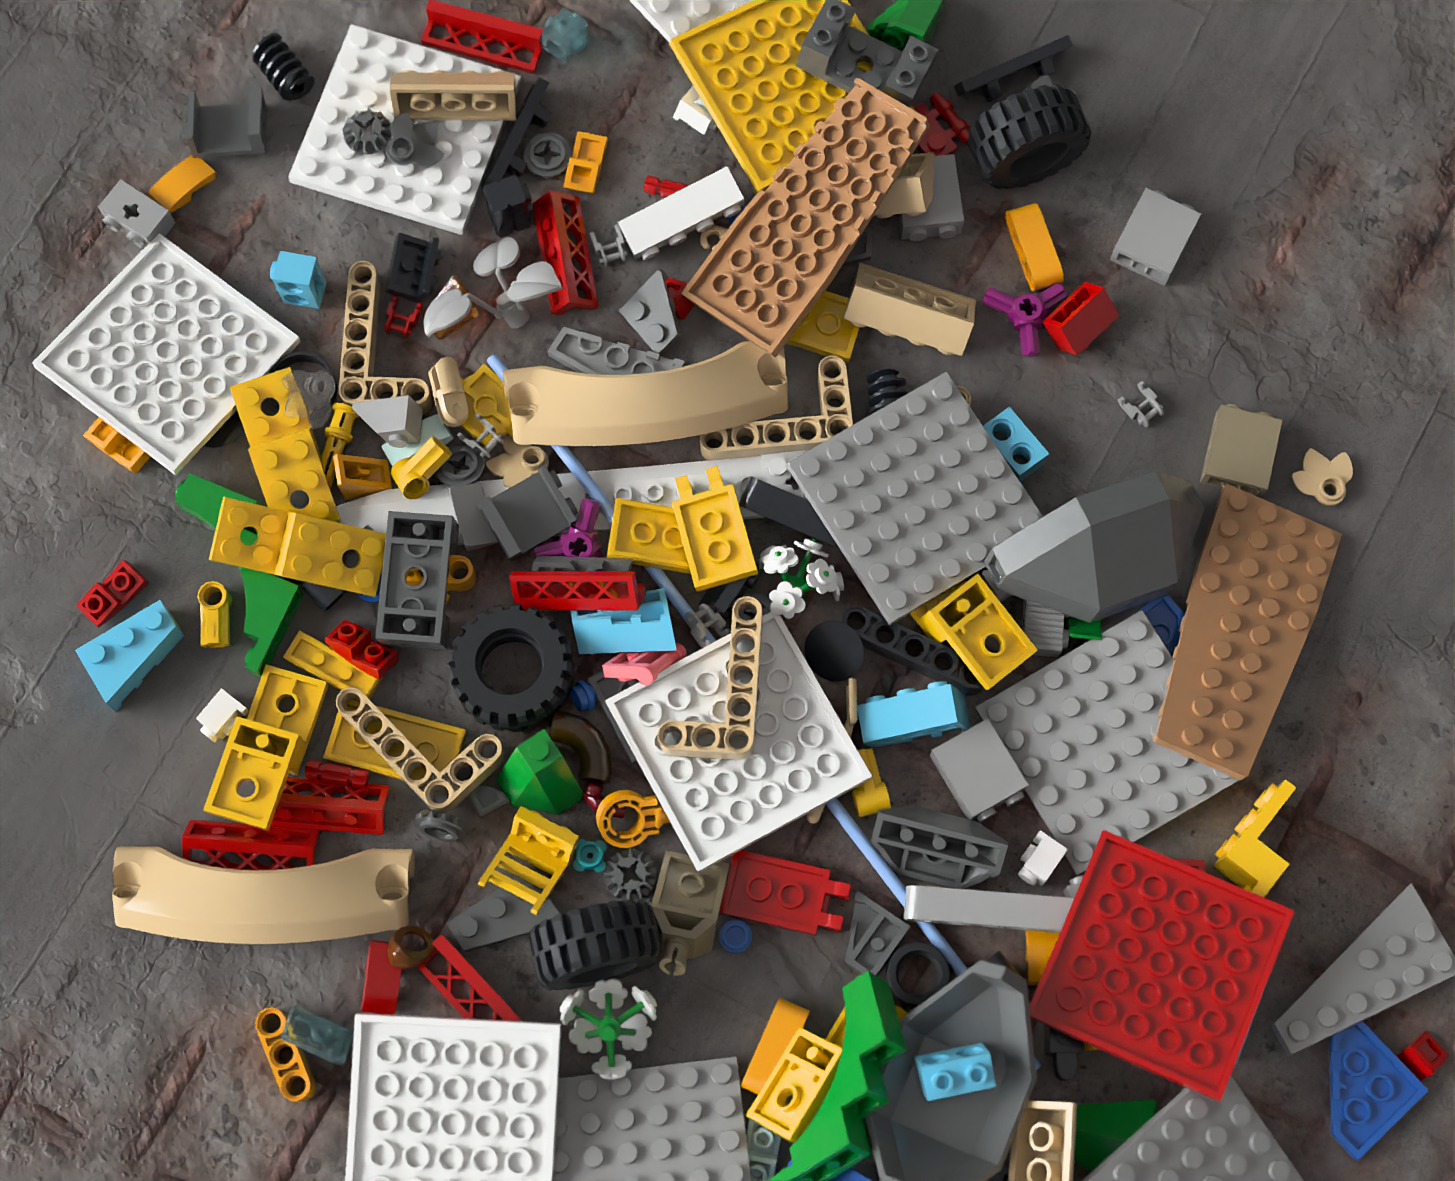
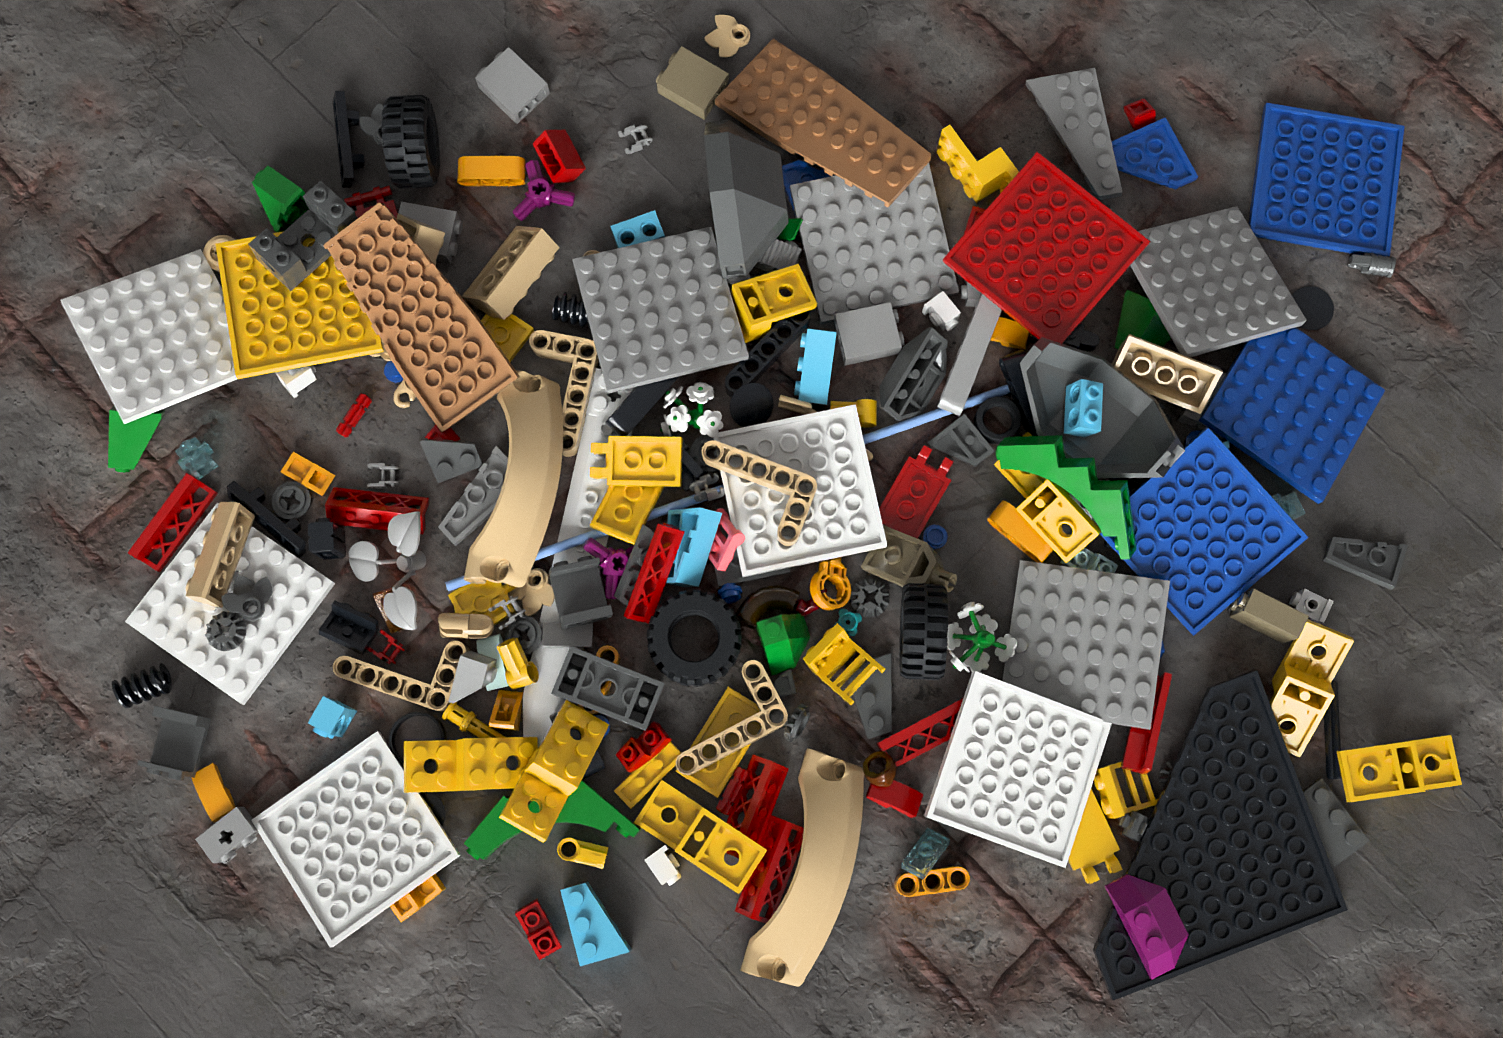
camera: 75 degrees left, 5 degrees up
(307, 399) = (434, 735): clear plate -> none
(682, 213) = (378, 412): white brick -> none

